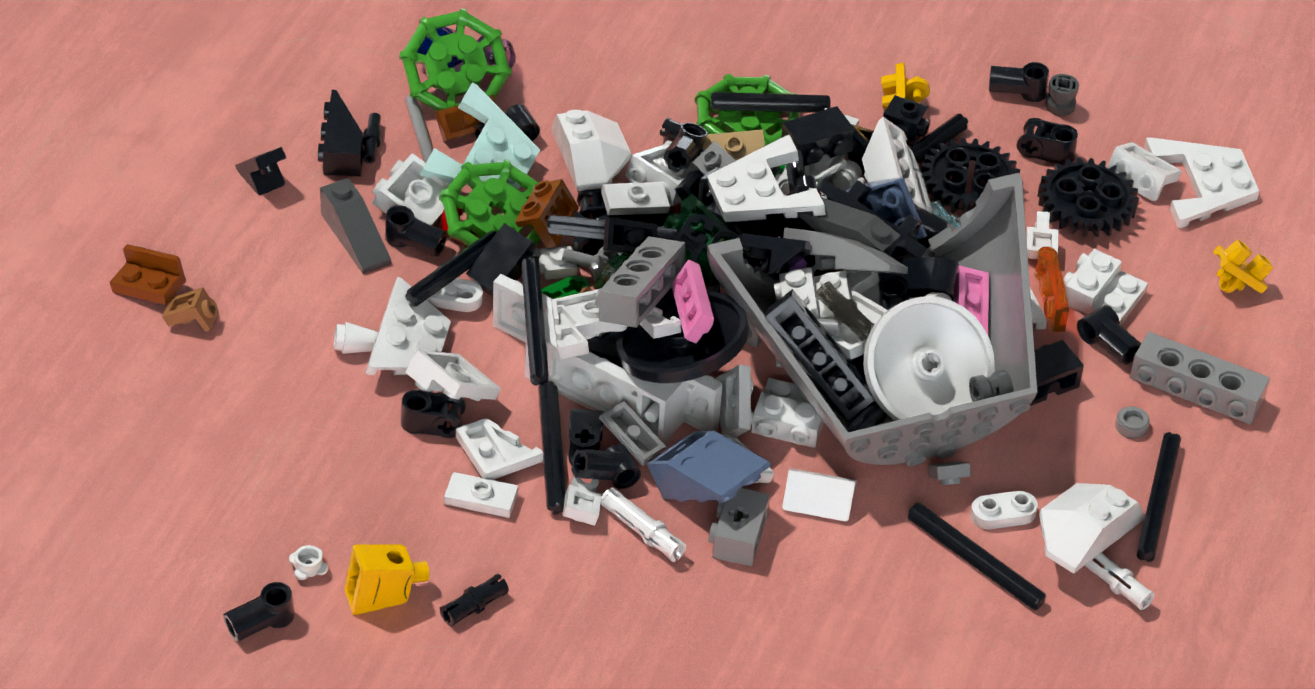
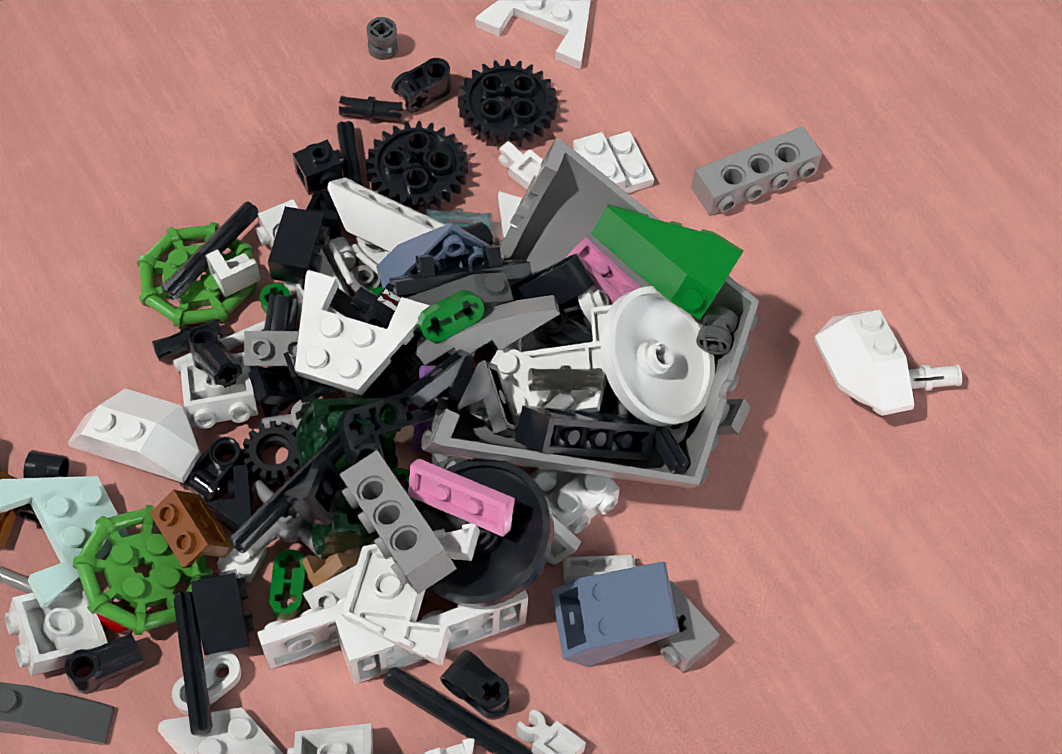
camera: 55 degrees left, 15 degrees up
(534, 322) = (350, 646): black axle -> none
(612, 464) = (532, 690): black piece -> none
(633, 433) = (513, 644): light grey slope -> none
(635, 198) = (240, 442): white plate -> none
(652, 531) = (616, 708): white pin -> none
(737, 143) = (240, 315): tan plate -> none
(758, 119) = (234, 273): none -> white panel
(784, 272) = (488, 392): none -> black slope
(819, 494) = (679, 533): white panel -> none
(826, 226) = (449, 321): none -> green beam
(897, 84) = (267, 138): yellow hips -> none
(977, 556) = (826, 463): black axle -> none
(993, 125) = (370, 108): none -> black pin
(1007, 510) = (791, 404): white plate -> none
(1008, 316) = (673, 259): none -> green wedge
(1028, 81) = (345, 52): black piece -> none
(1105, 329) = (665, 196): black piece -> none
(1132, 422) = (761, 248): light grey tile -> none
(1144, 168) = (509, 42): white bracket -> none
(1158, 497) = (849, 282): black axle -> none
(1236, 272) = (672, 58): yellow hips -> none

